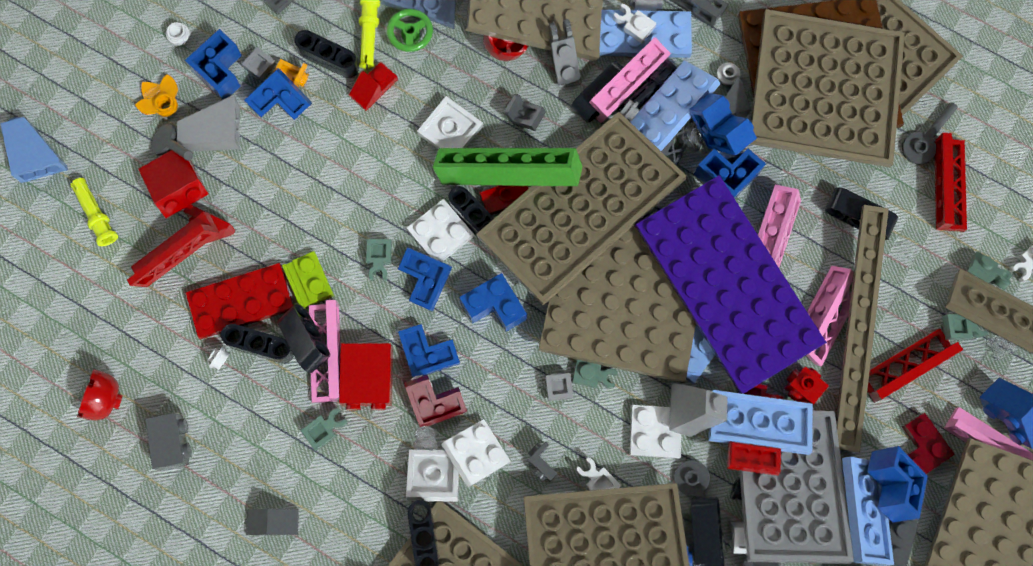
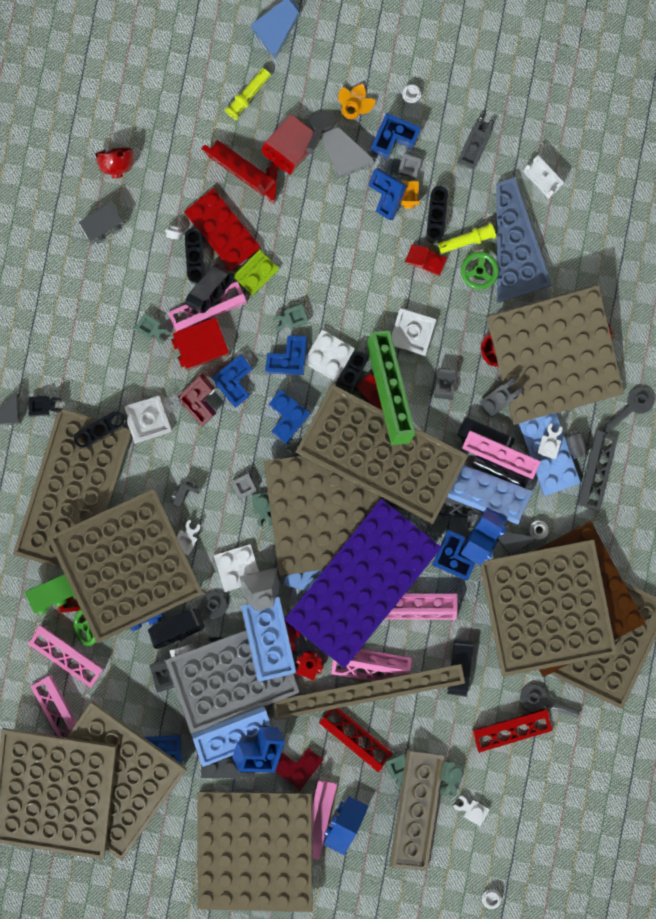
camera: 75 degrees right, 10 degrees up
(272, 521) = (74, 319): dark grey slope -> none
(475, 453) = (173, 444): white plate -> none
(630, 110) = (474, 463): light grey plate -> none
(754, 458) = (239, 641): red plate -> none

